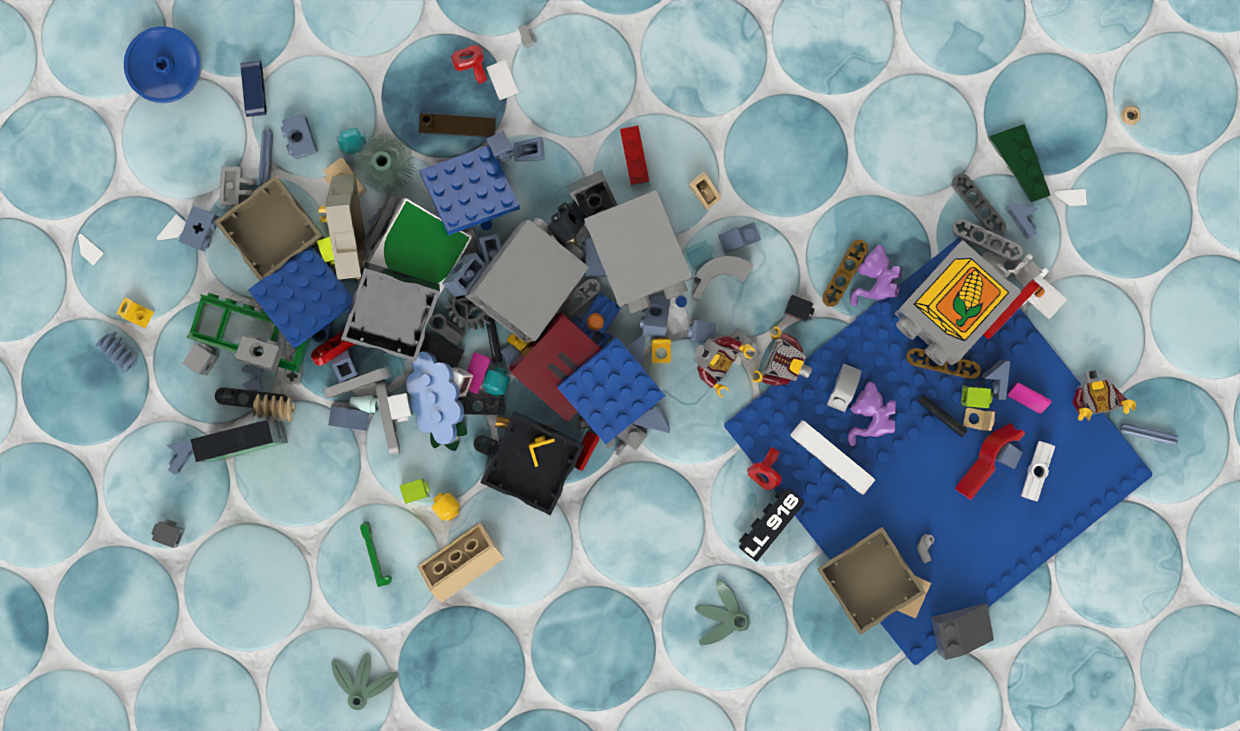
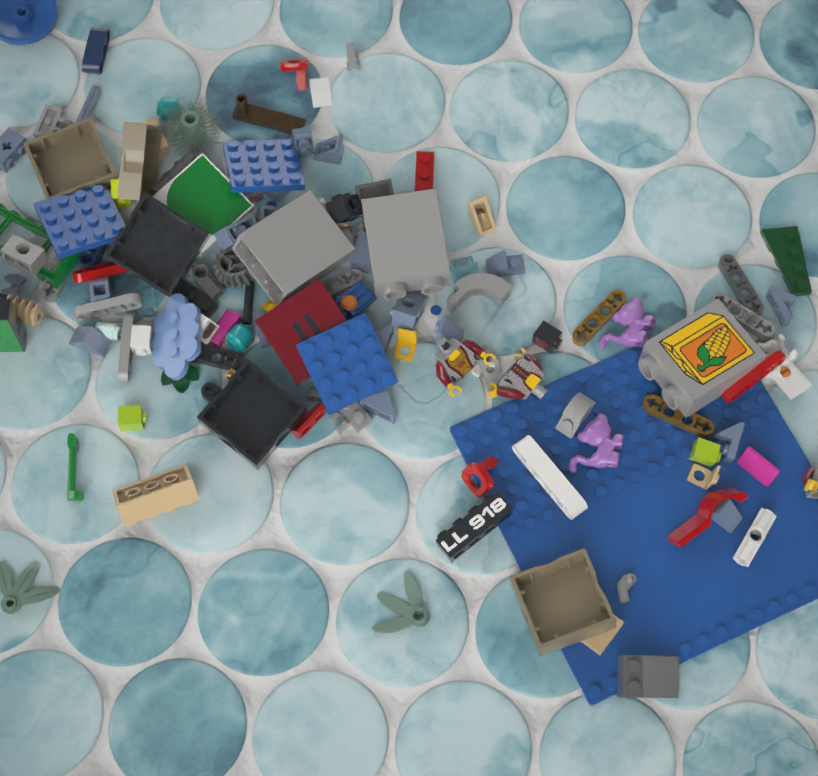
camera: 10 degrees right, 20 degrees down
(306, 145) = (125, 87): sand blue brick -> none
(446, 506) = (157, 438): yellow head -> none
(542, 440) = (264, 395): yellow bracket -> none
(942, 415) = (667, 464): black piece -> none

